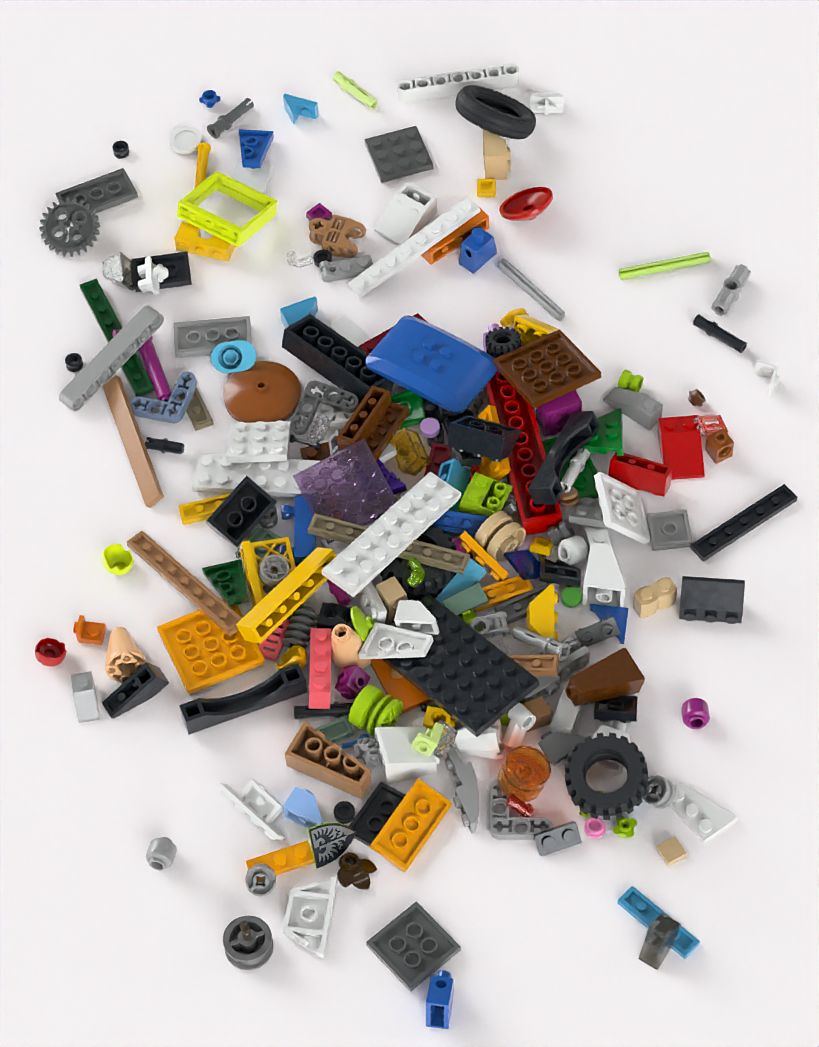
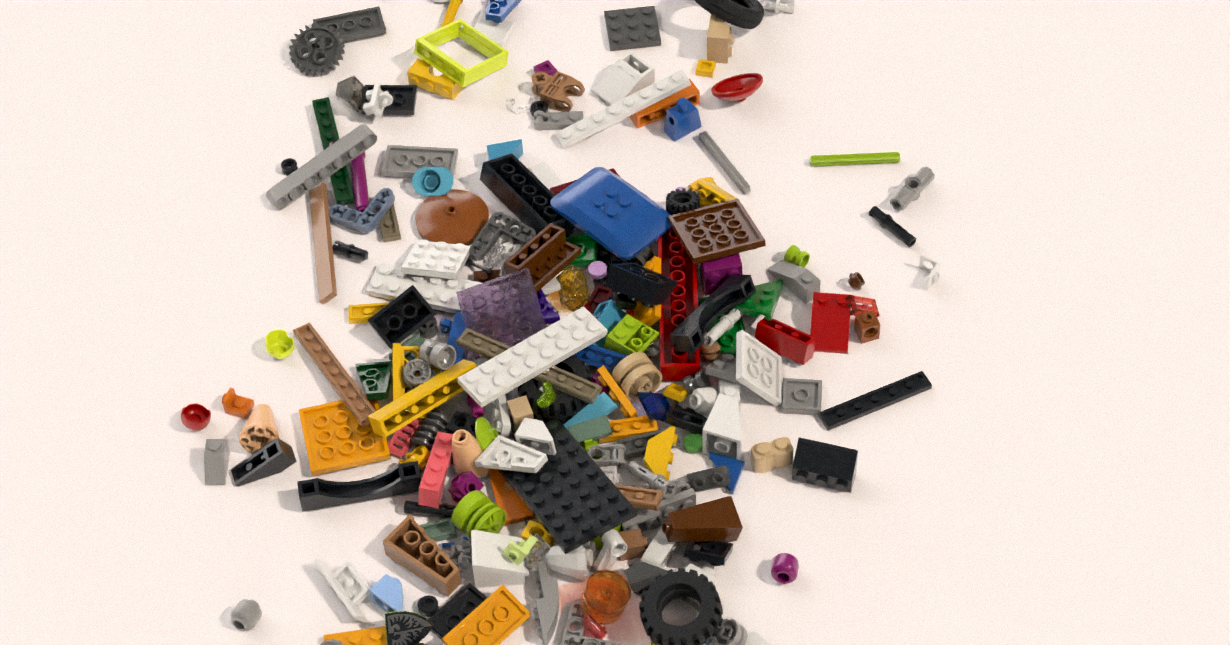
camera: 10 degrees right, 5 degrees down
(291, 546) = (437, 354): none -> light grey wheel

